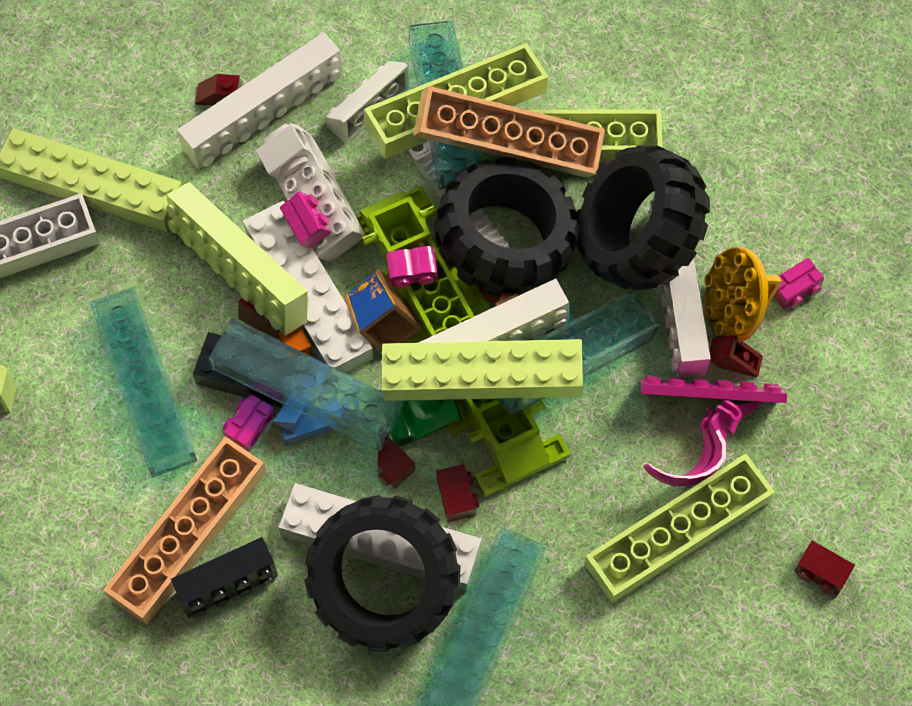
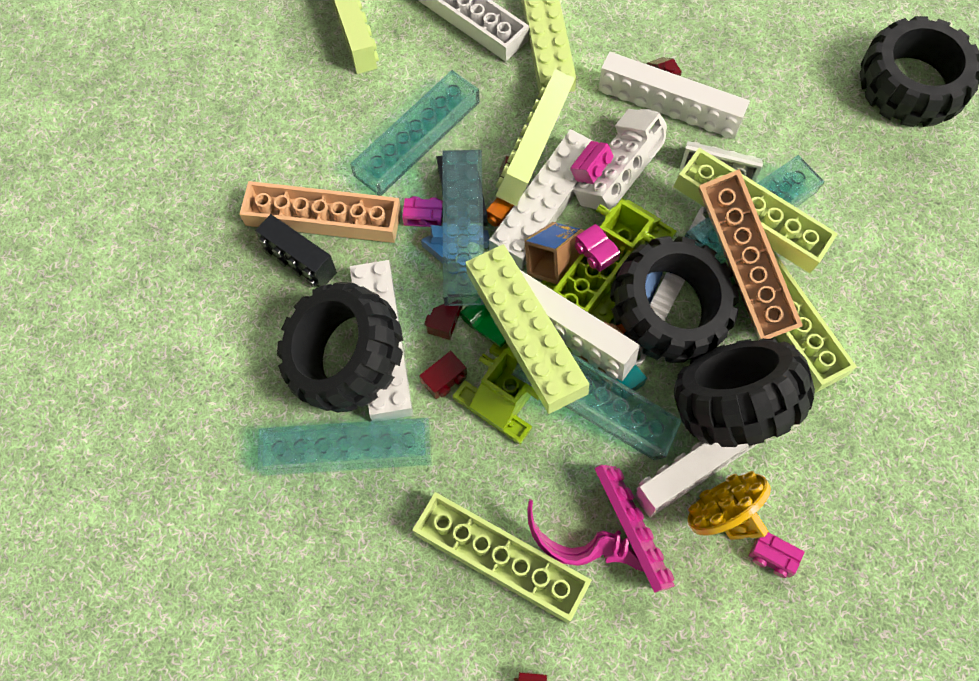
camera: 65 degrees right, 0 degrees up
(735, 356) = (679, 533): dark red slope -> none

